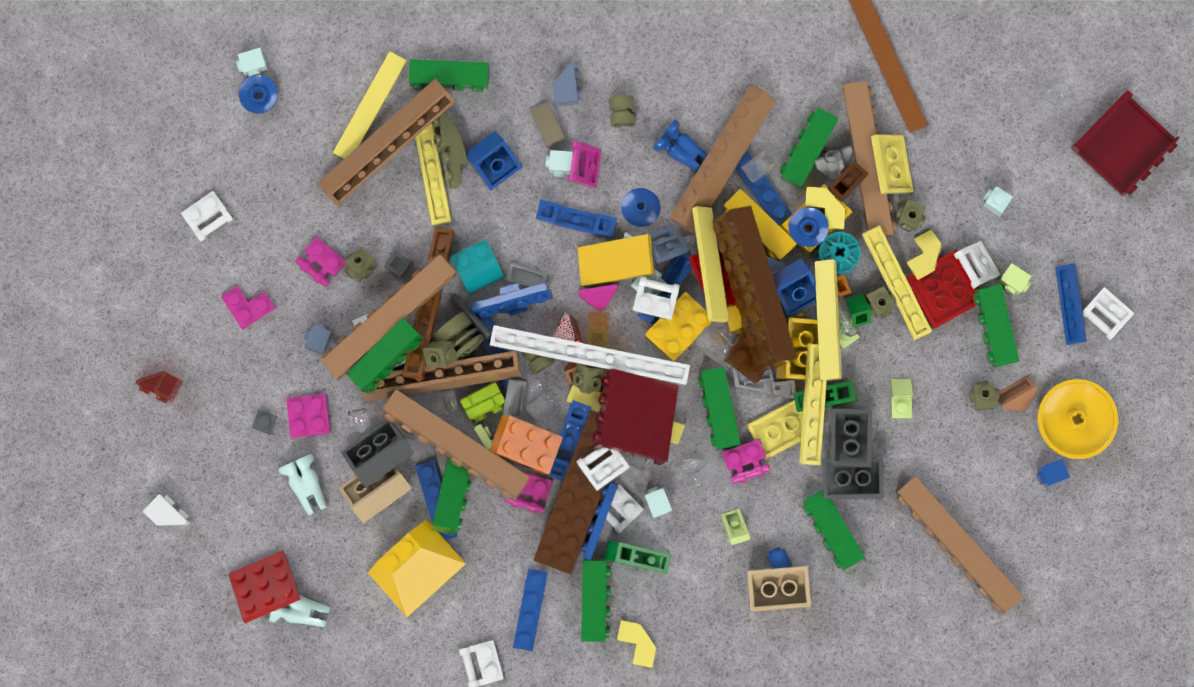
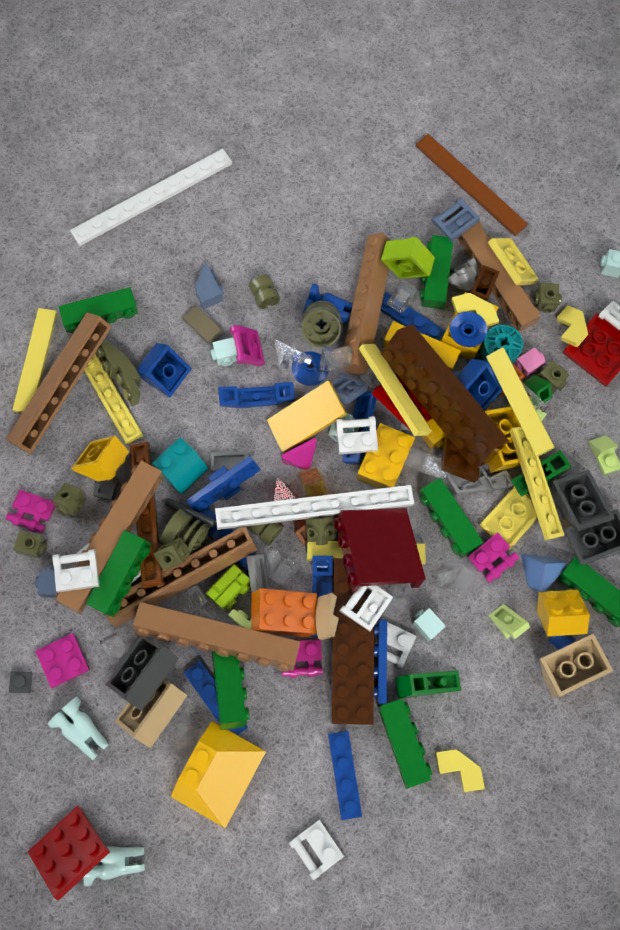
camera: 30 degrees left, 10 degrees down
(311, 296) = (30, 545): none -> olive brick
(344, 347) = (77, 577): none -> white plate
(403, 234) = (101, 459): none -> yellow slope
(560, 465) = (325, 620): none -> tan slope
(623, 187) = (288, 354): none -> clear slope
(665, 169) = (317, 333): none -> olive wheel
(665, 209) = (334, 358): none -> clear slope
(780, 126) = (408, 258): none -> lime brick
(788, 490) = (541, 570): none -> medium blue slope
(788, 537) = (563, 613): none -> yellow brick
(849, 105) = (459, 223): none -> sand blue plate
(864, 279) = (530, 362): none -> bright pink brick
(896, 282) = (556, 352): light yellow tile -> none

